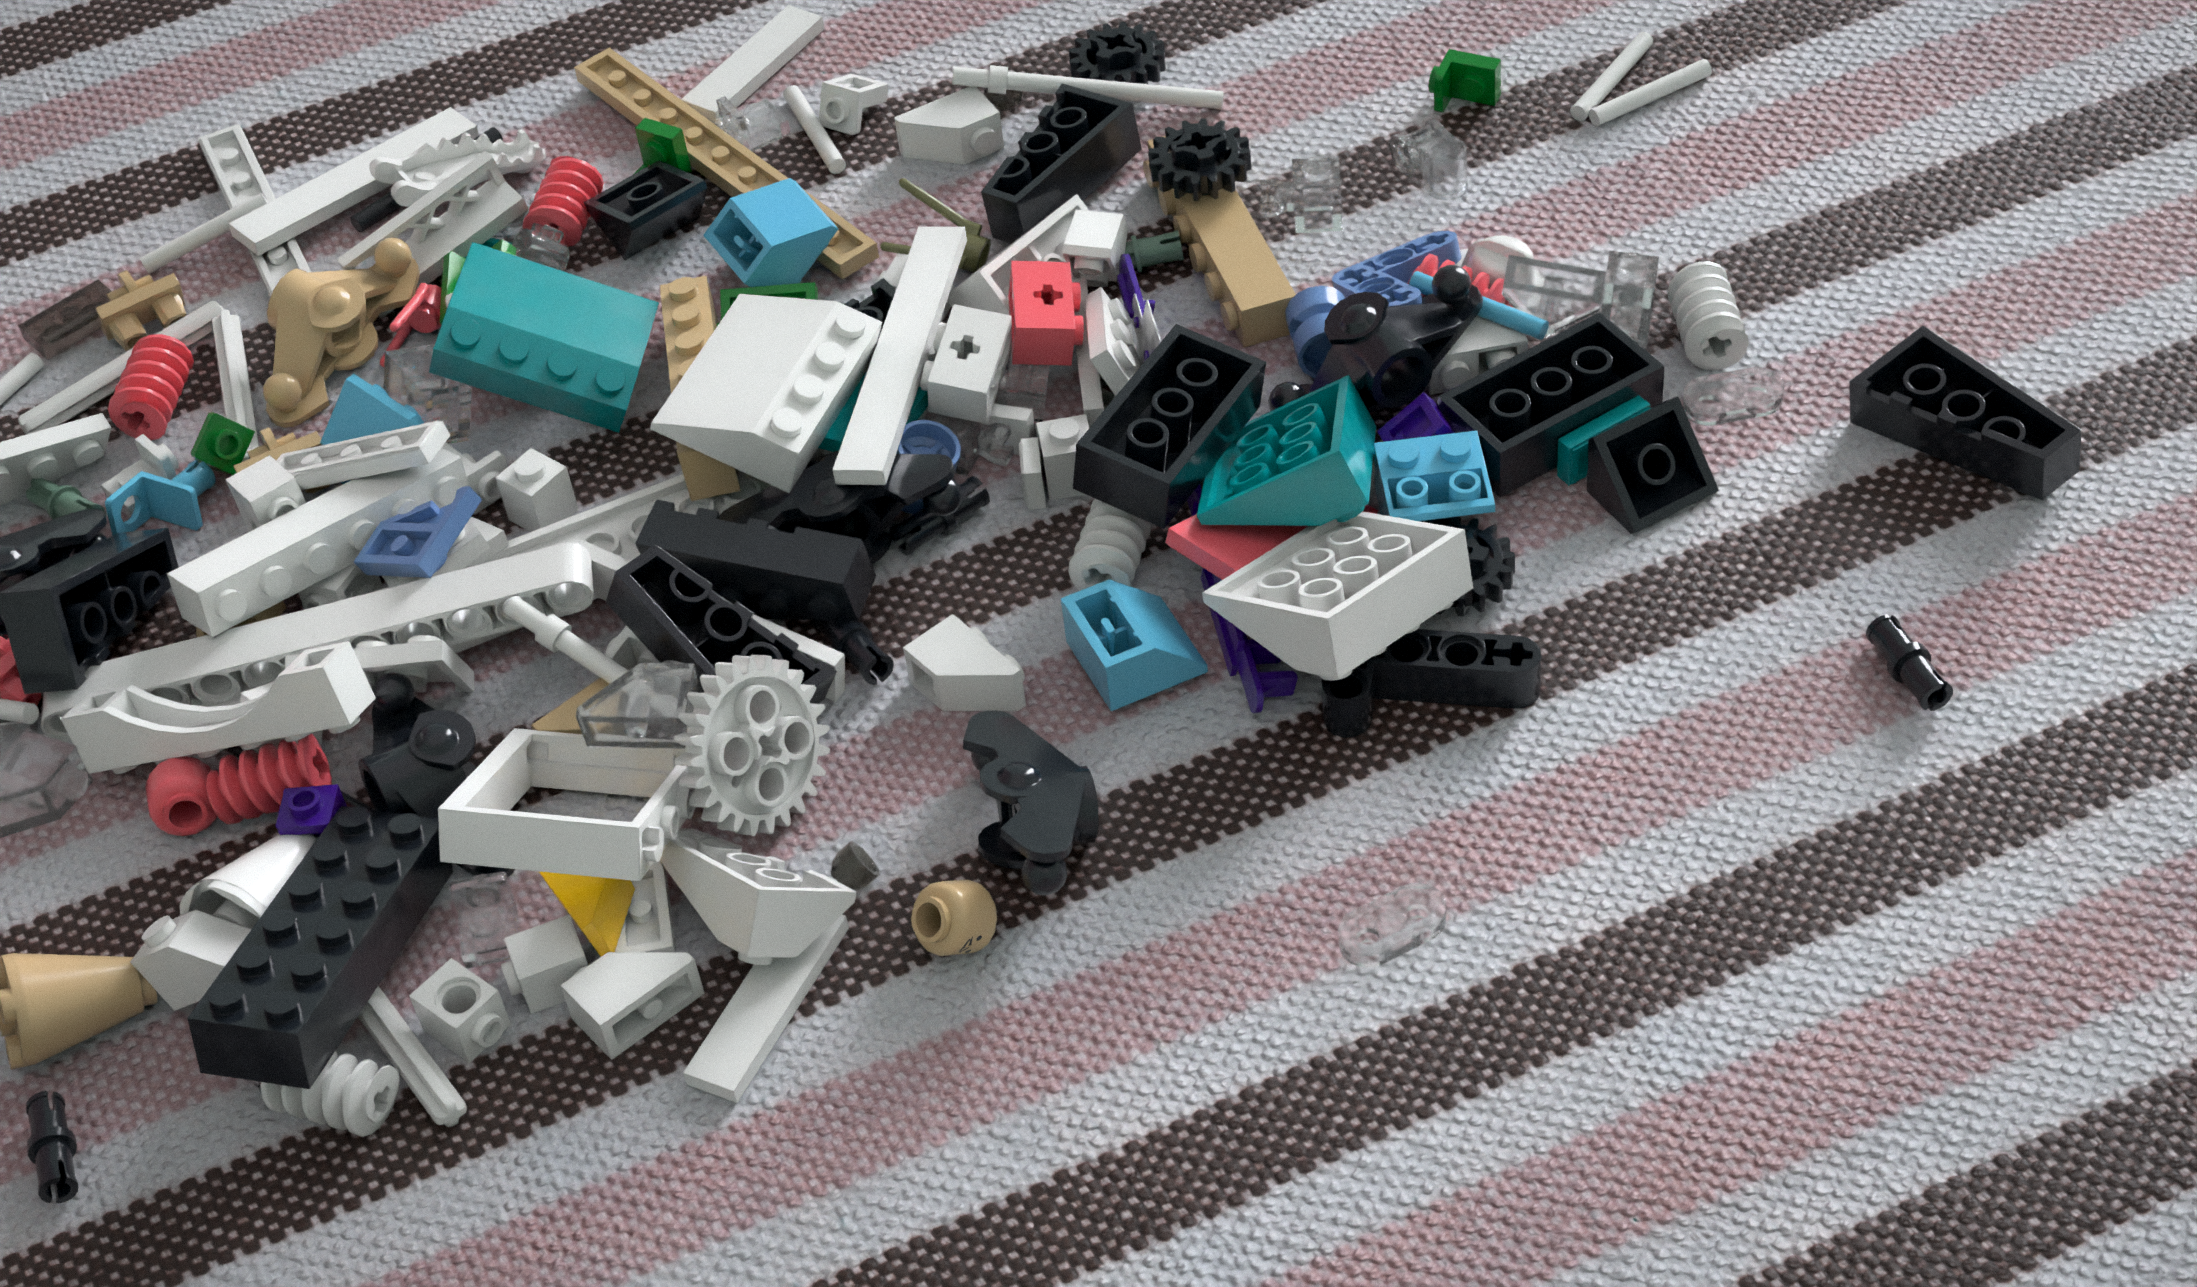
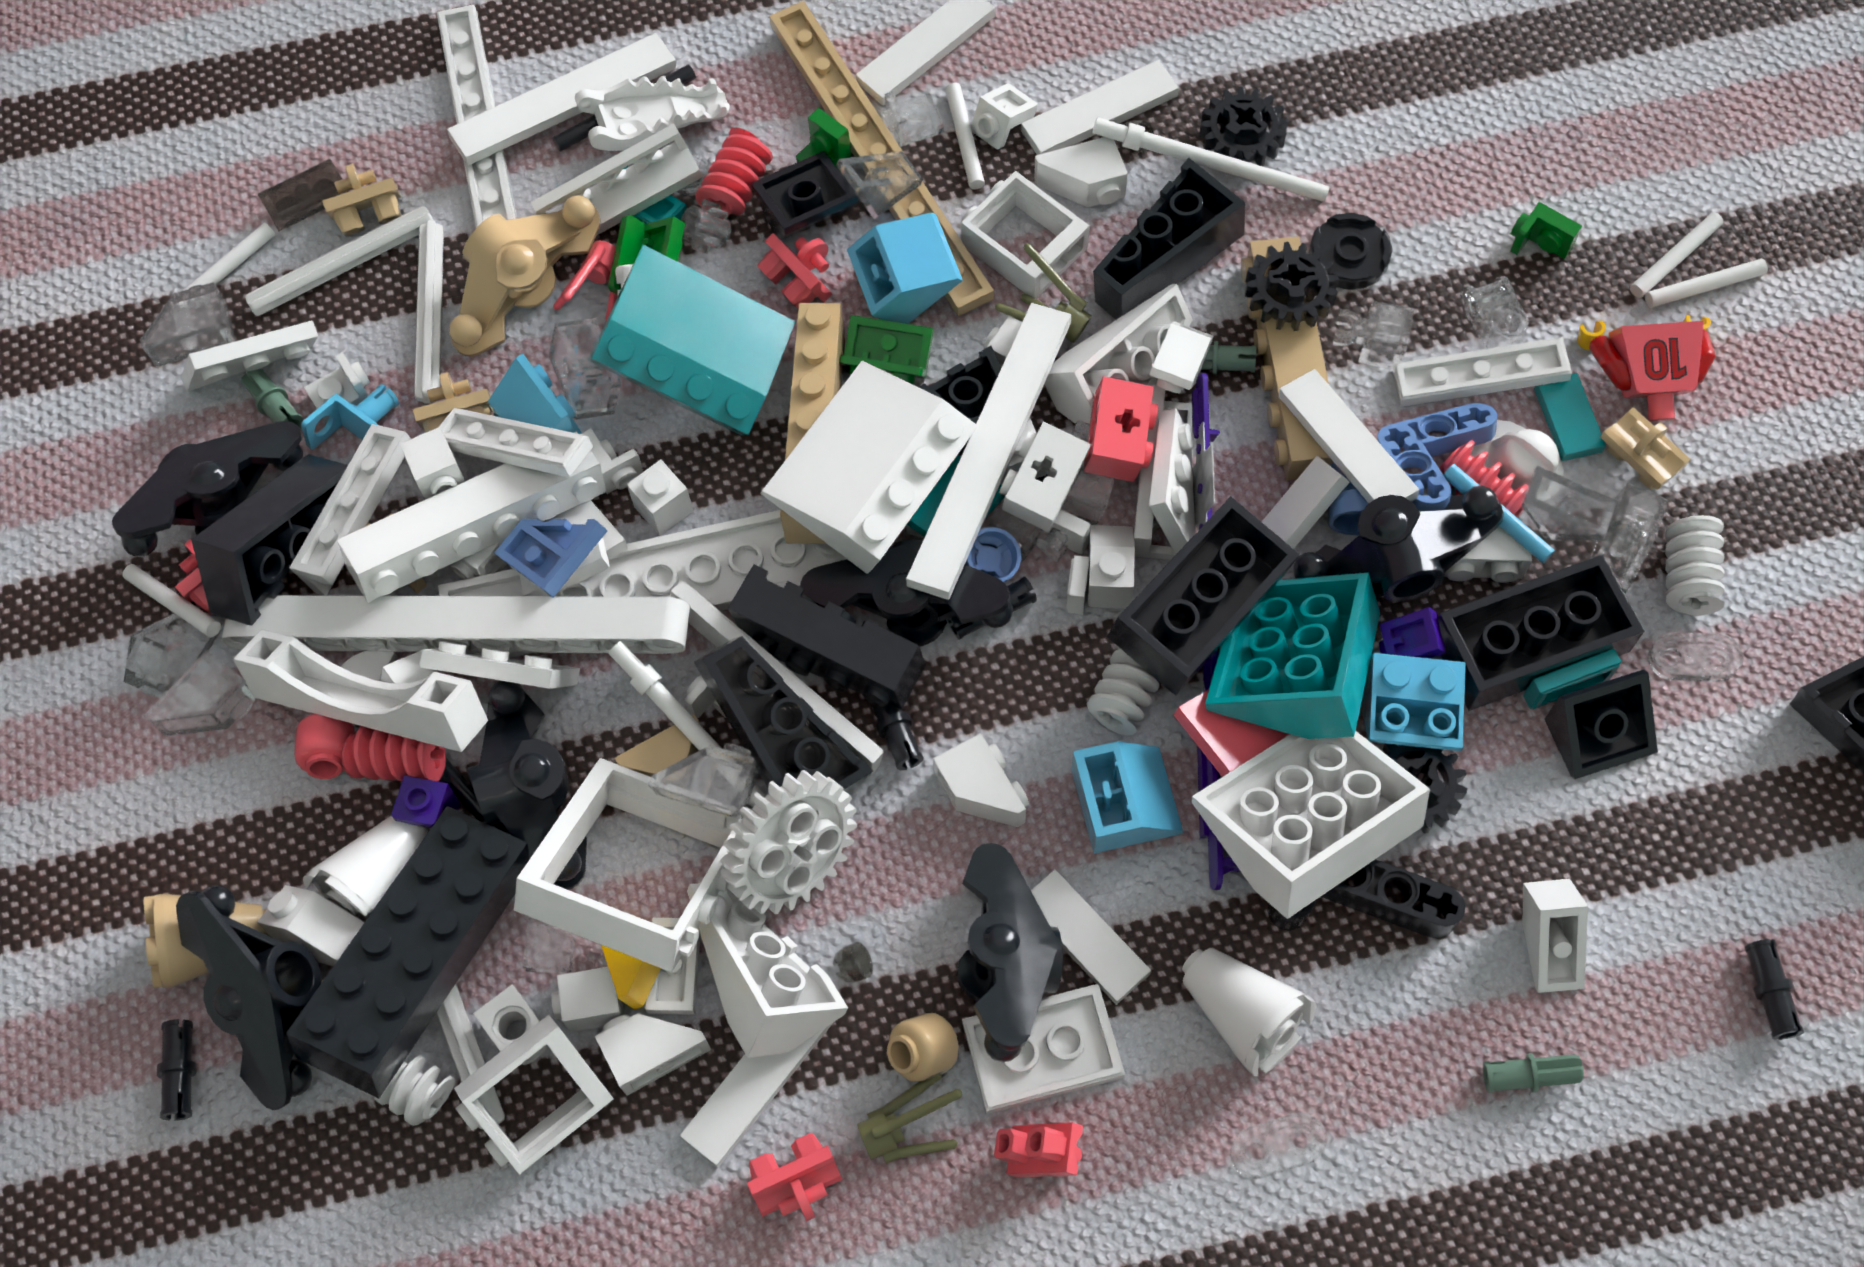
camera: 10 degrees right, 20 degrees up
(133, 1023) = (252, 991): none -> black piece
(150, 386) = (356, 292): coral piece -> none
(193, 531) = (349, 506): none -> white fence
(199, 235) = (426, 126): white bar -> none
(221, 443) = (407, 377): green bracket -> none
(537, 1016) = (555, 1126): none -> white window
(656, 263) = (782, 260): none -> coral hips
(725, 167) = (880, 179): none -> clear slope
(830, 1081) = (795, 1183): none -> coral hips
(889, 158) = (1060, 253): none -> white window
(928, 1013) = (883, 1129): none -> olive plant
(1005, 48) = (1113, 102): none -> white tile
(1107, 902) = (1065, 1052): none -> white tile
(1121, 979) = (1040, 1149): none -> coral hips
(1134, 791) = (1090, 938): none -> white tile
(1272, 138) = (1355, 248): none -> black tile
(1274, 334) = (1305, 501): none -> white tile
(1287, 269) = (1345, 439): none -> white tile
(1326, 798) = (1247, 1007): none -> white cone
(1430, 207) = (1481, 371): none -> white tile
(1538, 226) = (1570, 418): none -> teal tile
(1609, 155) = (1653, 360): none -> torso
(1622, 228) = (1645, 449): none -> tan hips
(1652, 665) = (1555, 934): none -> white slope
(1663, 794) = (1532, 1072): none -> sand green axle

